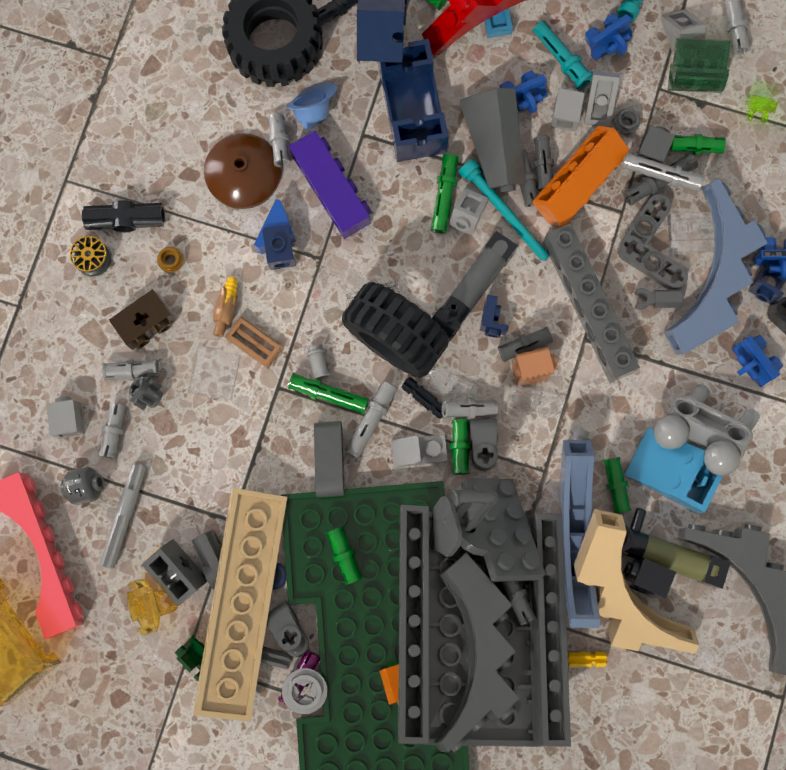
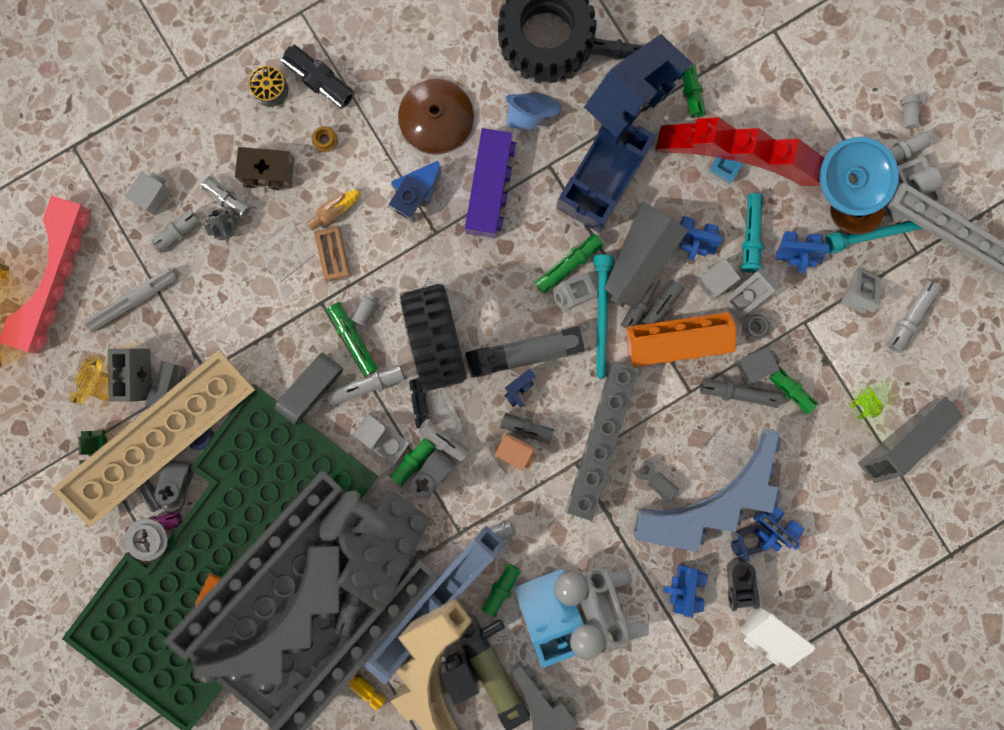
camera: 40 degrees right, 5 degrees up
(82, 486) = (118, 253): dark grey head -> none
(279, 140) = (481, 116): light grey pin -> none
(344, 555) = (257, 468): green pin -> none
(634, 164) = (760, 418): light grey pin -> none
(641, 244) = (684, 427): dark grey beam -> none
(699, 65) = (848, 332): clear green brick -> none

